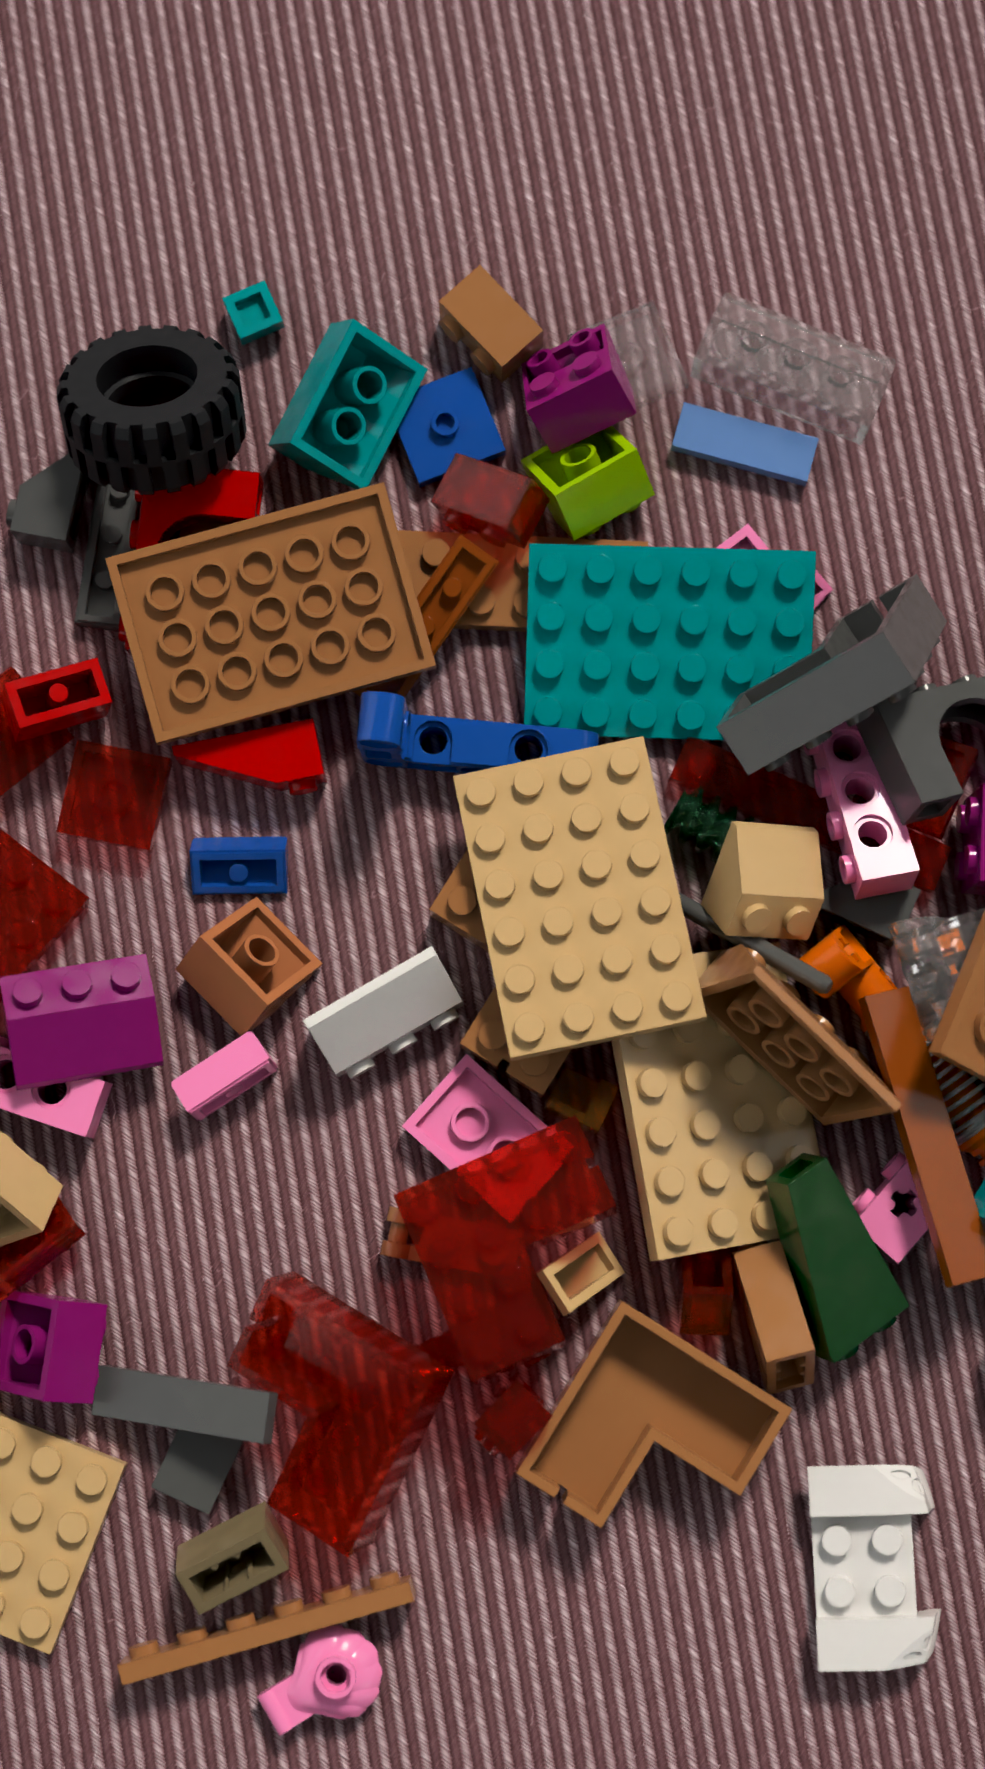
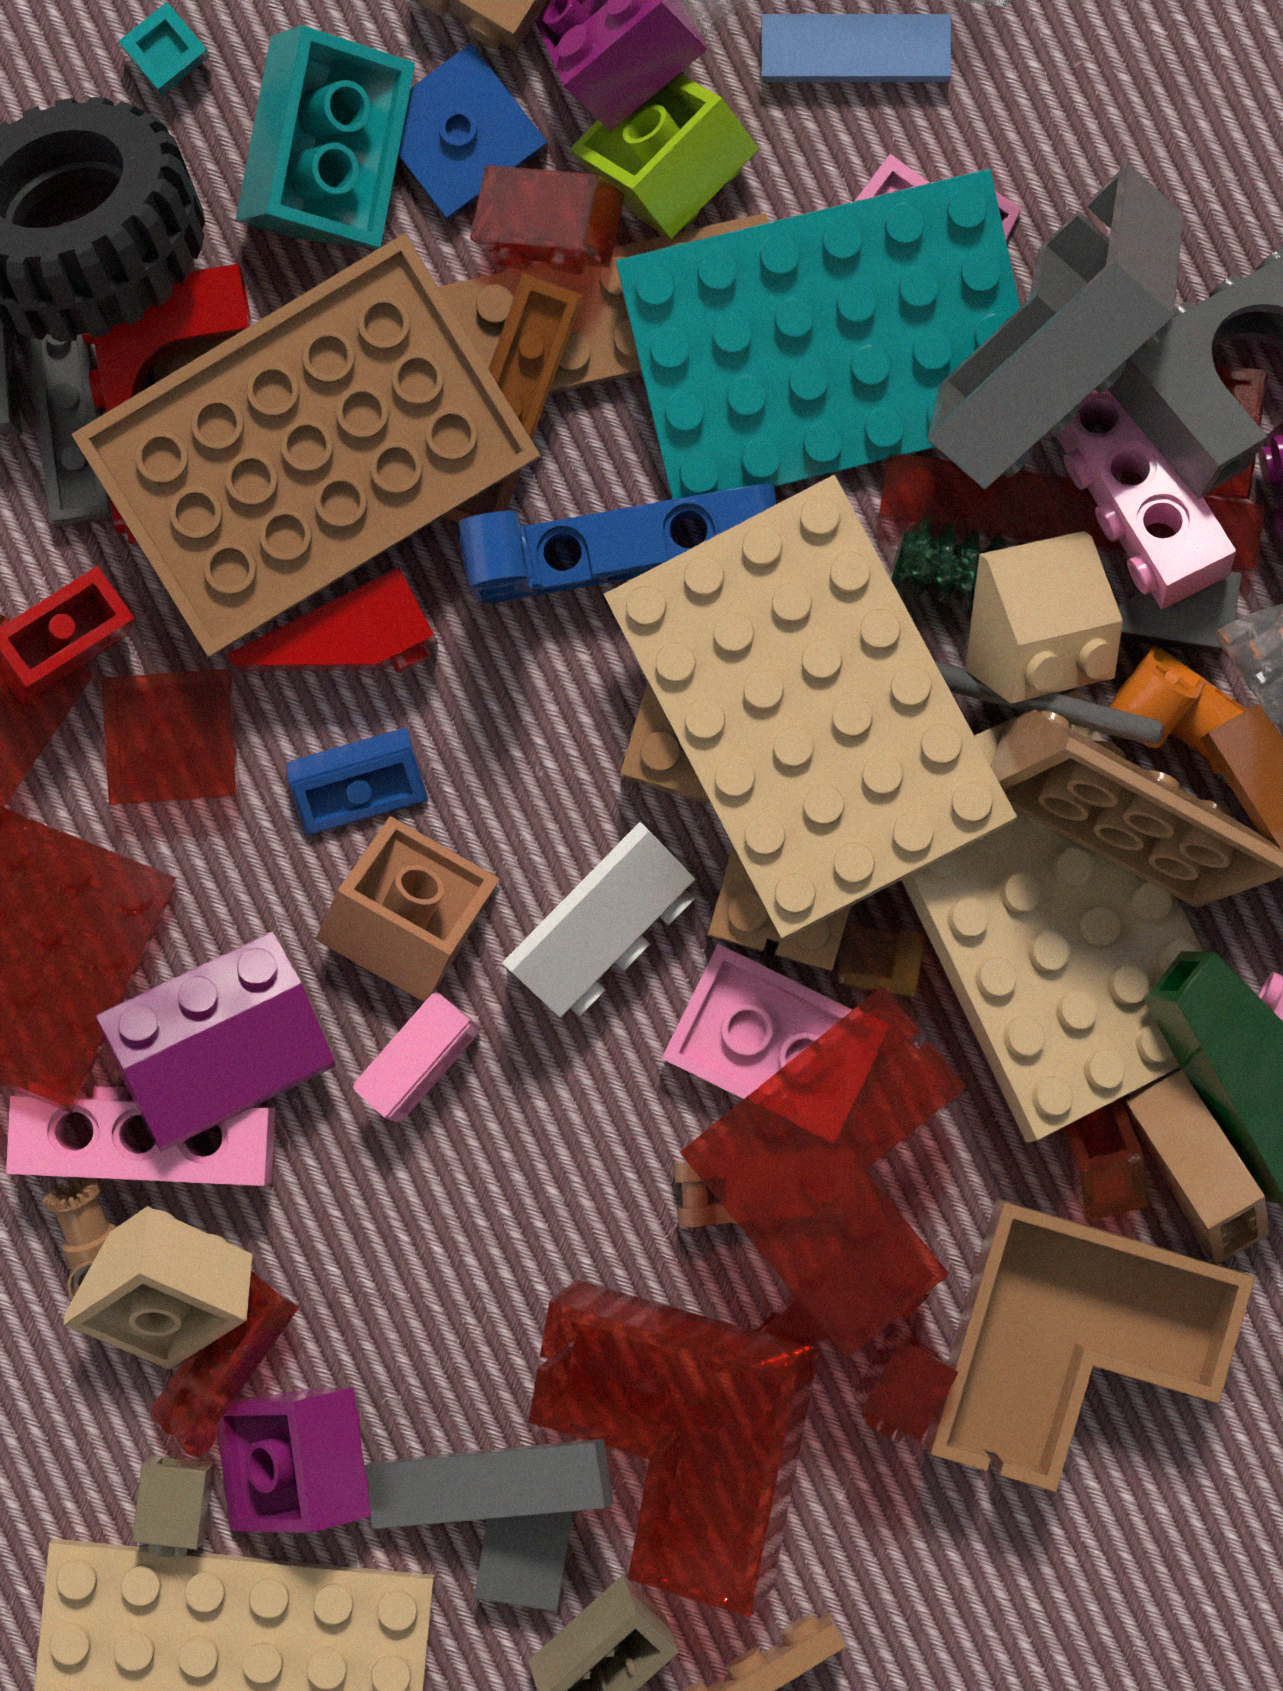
camera: 15 degrees left, 5 degrees up
(580, 1273) = (939, 1181): tan slope -> none

